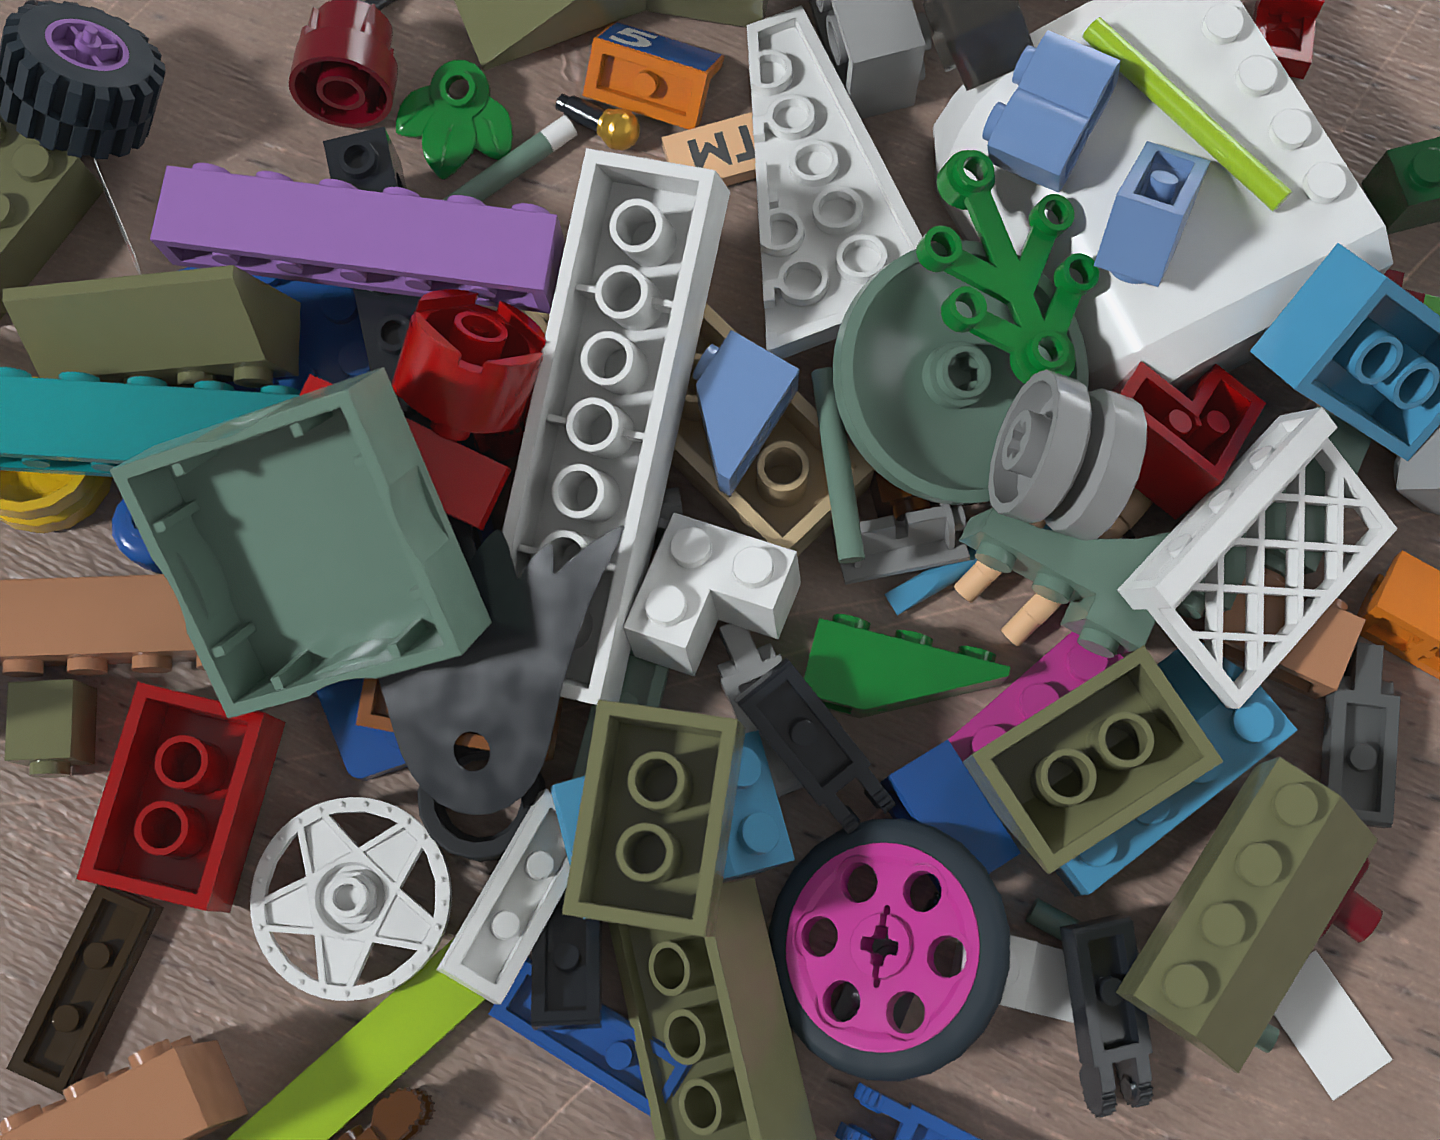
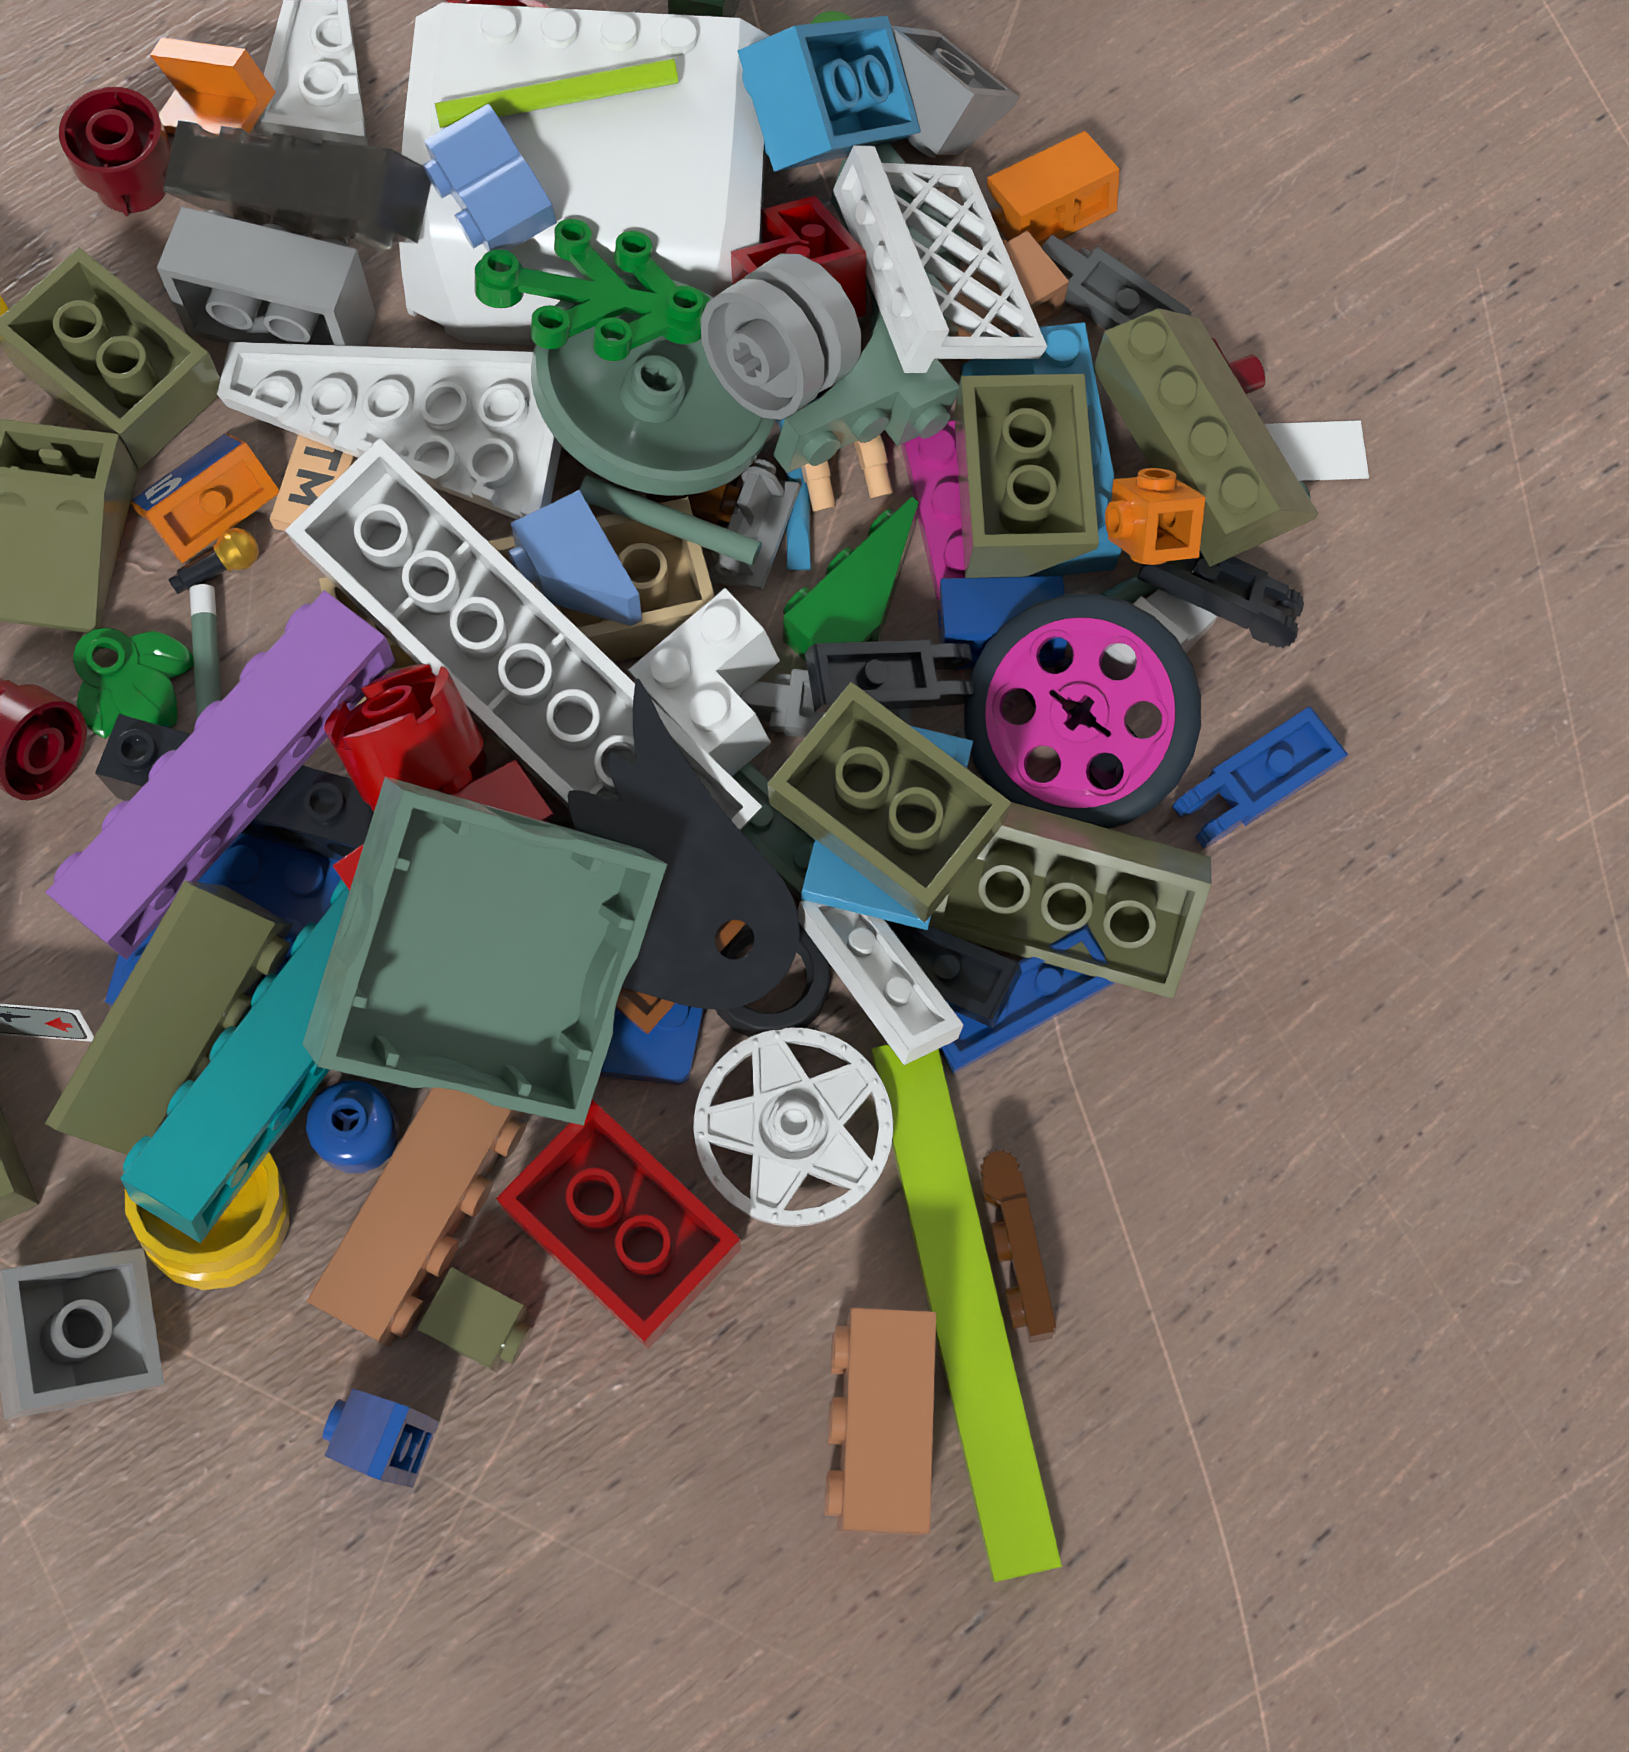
camera: 70 degrees left, 5 degrees down
(85, 988) = (733, 1414): dark brown tile -> none
(1113, 914) = (1155, 517): none -> orange brick
(1150, 214) = (627, 161): medium blue slope -> none

